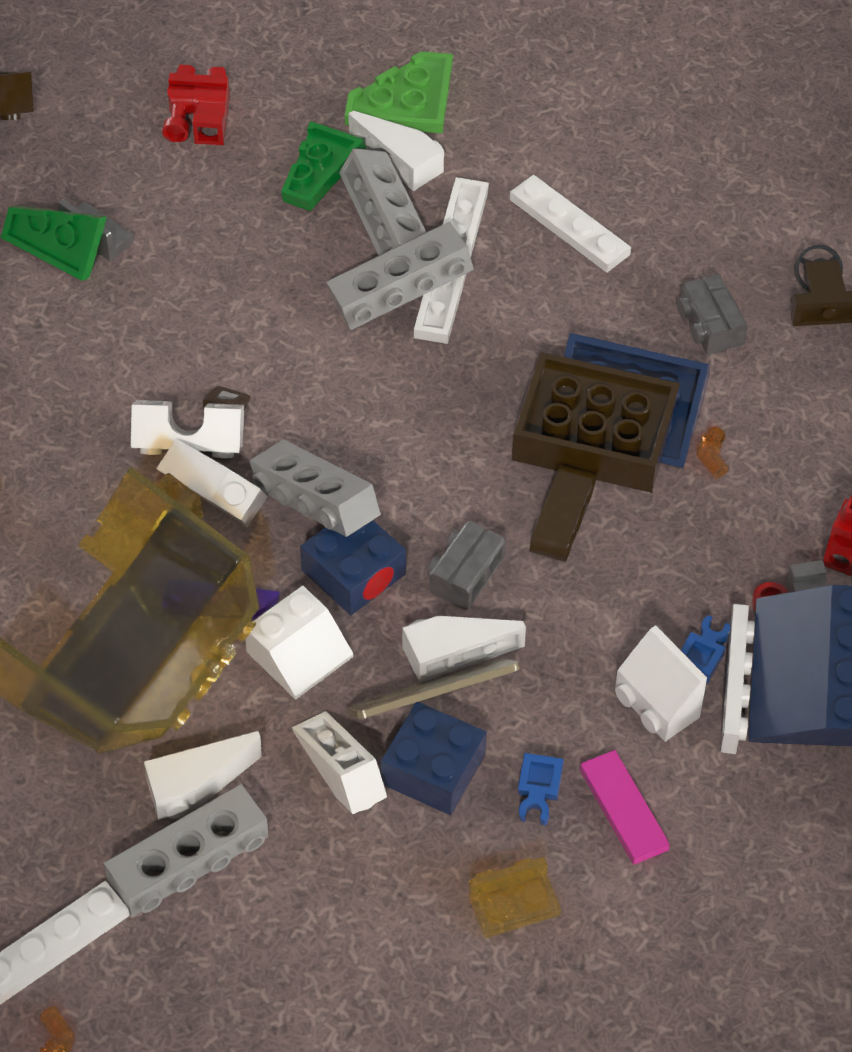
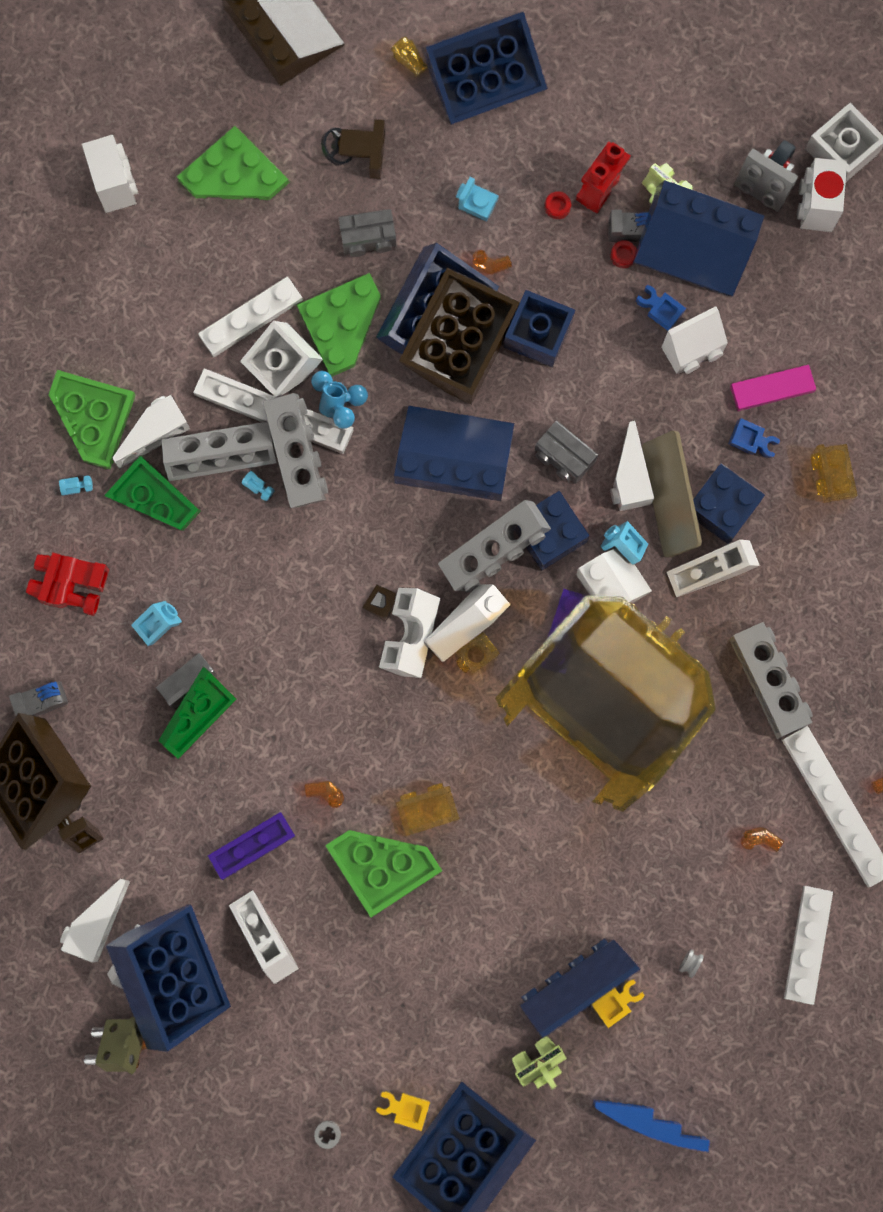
camera: 80 degrees left, 25 degrees up
(52, 100) = (39, 700): none -> flat silver leg
(167, 188) = (156, 622): none -> medium azure bracket
(194, 776) = (722, 673): white slope -> none
(317, 94) = (73, 485): none -> medium azure piece
(354, 257) = (256, 485): none -> medium azure piece
(354, 649) = (626, 540): none -> medium azure bracket
(440, 446) = (454, 453): none -> dark blue slope
(476, 310) = (334, 397): none -> dark azure piece
(520, 251) = (281, 358): none -> white slope
(562, 513) = (530, 377): dark brown beam -> none
(589, 306) = (341, 321): none -> bright green plate
(630, 506) = (539, 328): none -> dark blue brick
(704, 54) = (110, 173): none -> white brick
(736, 693) = (700, 294): white plate -> none
(754, 179) = (233, 171): none -> bright green plate
(795, 421) = (476, 200): none -> medium azure bracket
(817, 515) = (557, 205): none -> red tile

